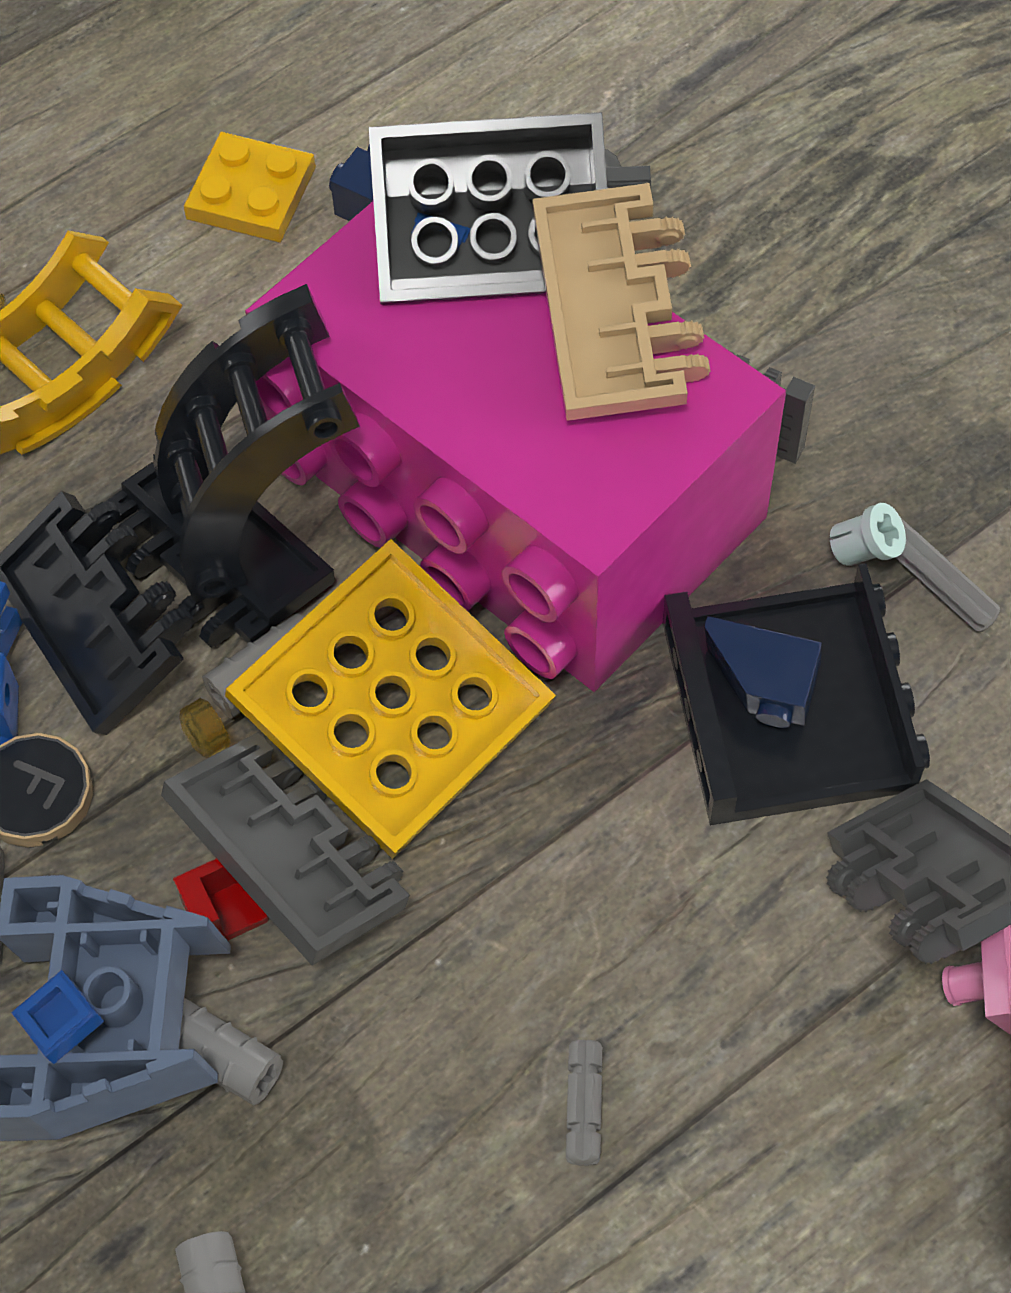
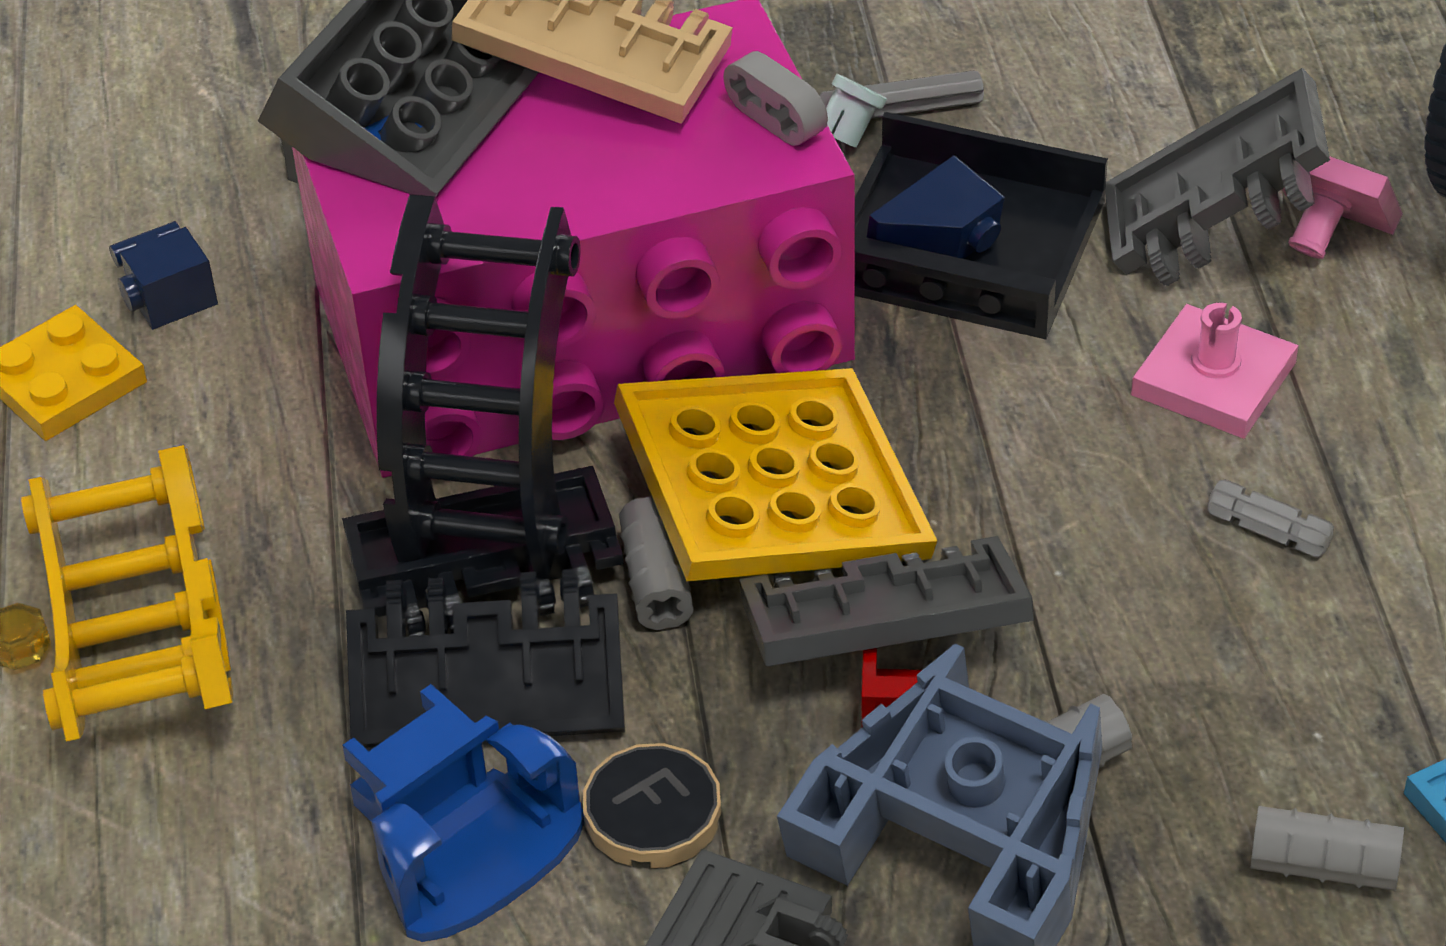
camera: 60 degrees left, 15 degrees down
(57, 1017) = (980, 806): blue tile -> none
(203, 728) = (692, 632): clear yellow tile -> none
(631, 470) = (775, 98): none -> beam
(746, 978) = (1215, 369): none -> bright pink tile

